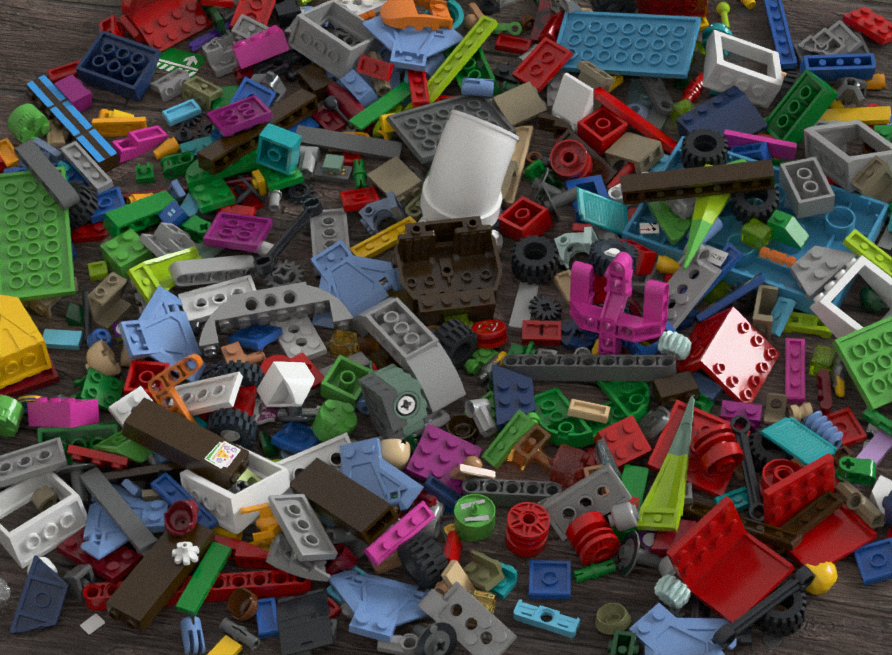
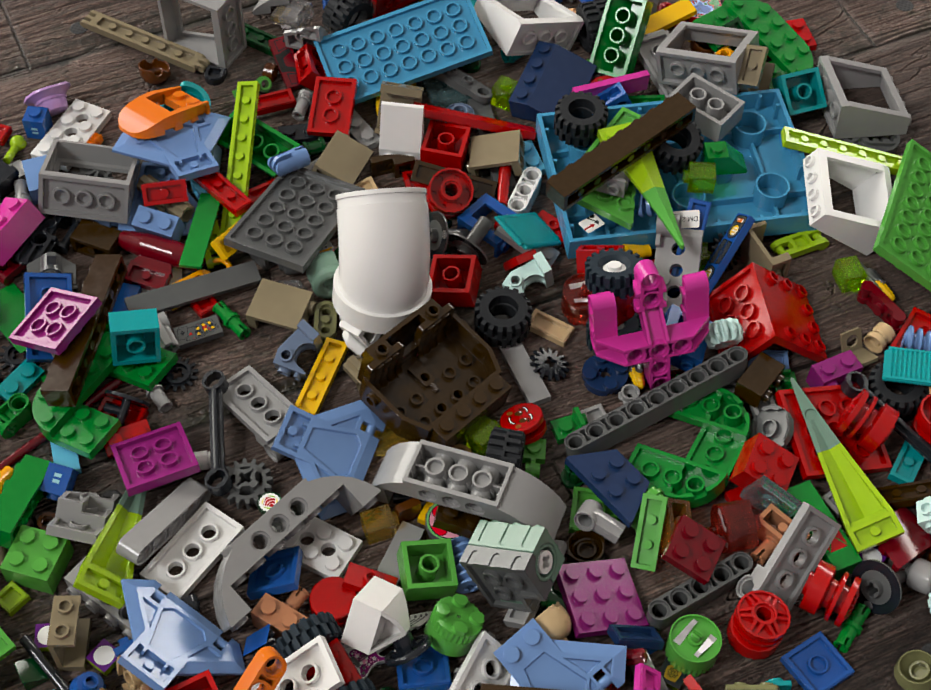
camera: 40 degrees left, 5 degrees up
(176, 190) = (36, 447): medium blue tile -> none
(196, 228) = (99, 479): green piece -> none
(258, 182) = (126, 385): yellow plate -> none
(332, 104) = (142, 255): black hinge -> none
(333, 163) = (194, 321): sand green tile -> none
(358, 198) = (255, 347): red tile -> none
(471, 469) = (645, 591): medium nougat tile -> none
(473, 16) = (218, 92): medium nougat tile -> none
(495, 360) = (553, 459): flat silver piece -> none
(522, 461) = (693, 549): none -> dark red plate
(541, 332) = (574, 393): red brick -> none
(588, 411) = (700, 452): tan tile -> none
(624, 516) = (845, 549): light grey head -> none
(693, 89) = (491, 68): red hinge -> none
(777, 257) = (737, 190): orange axle -> none
(781, 314) = (776, 241): medium azure plate -> none
(795, 370) = (829, 296): dark pink tile -> none
(818, 268) = (782, 182): light grey wing -> none
(870, 300) = (840, 191): dark green hair -> none

